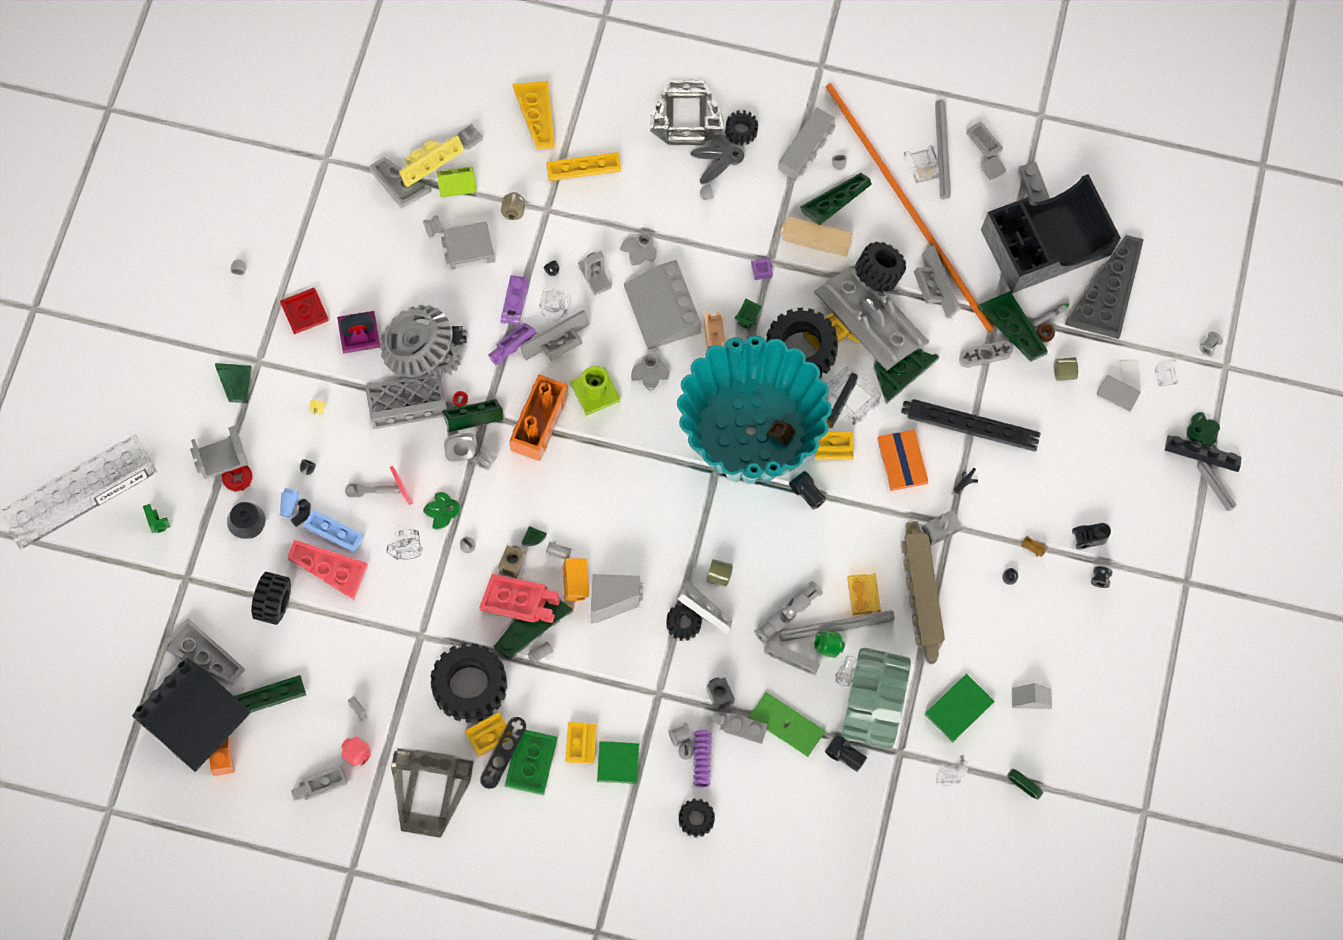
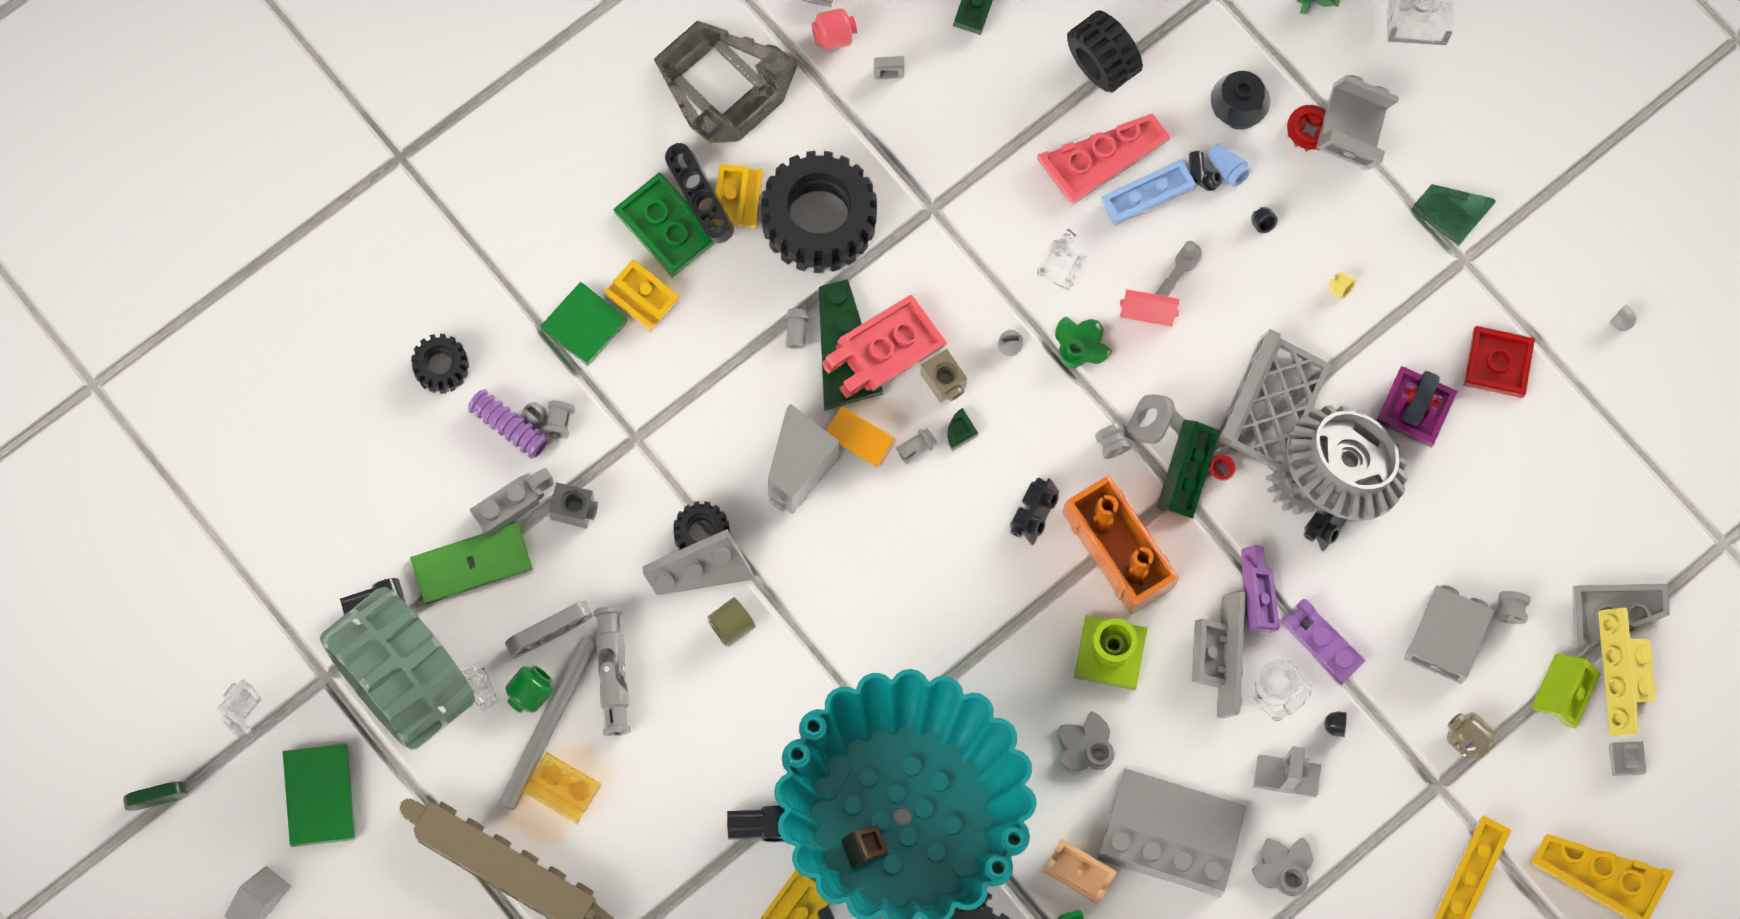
camera: 125 degrees right, 5 degrees up
(557, 471) = (1042, 498): none -> black hinge

